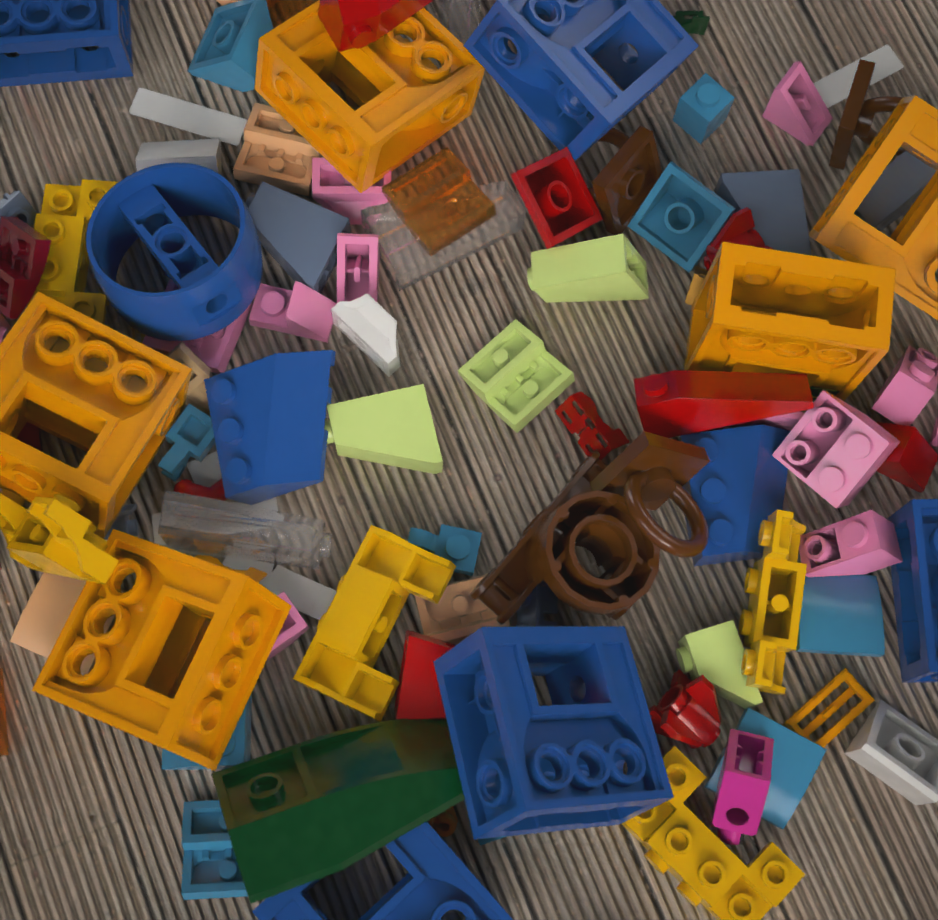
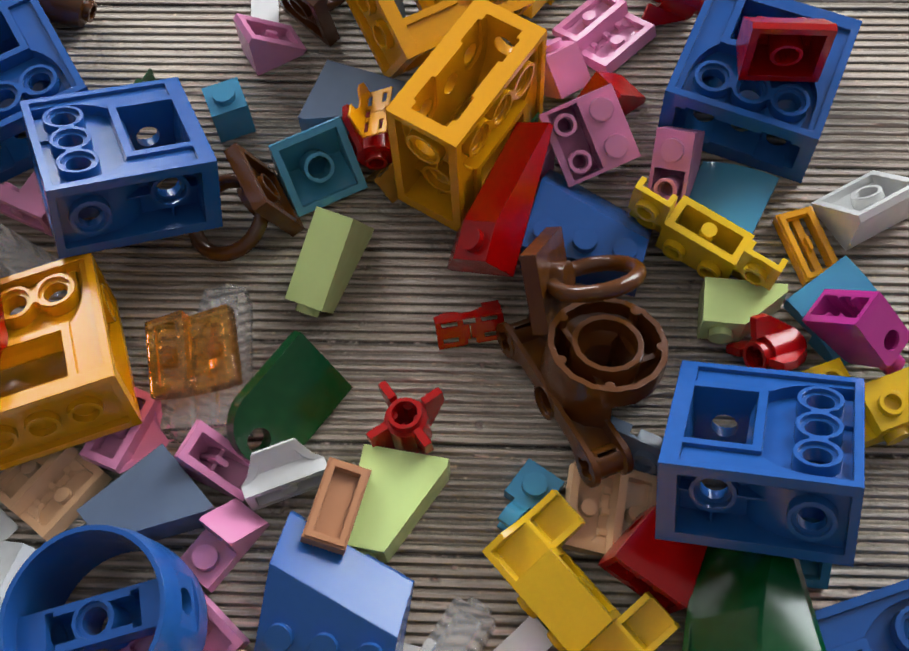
camera: 55 degrees left, 10 degrees down
(353, 385) = (336, 506): none -> nougat tile
(436, 300) = (286, 397): none -> dark green tile
(461, 411) = (407, 421): none -> red brick
(516, 375) = (394, 355): yellowish green slope -> none
(556, 197) = (248, 254): red slope -> none
(738, 226) = (377, 110): none -> light orange piece

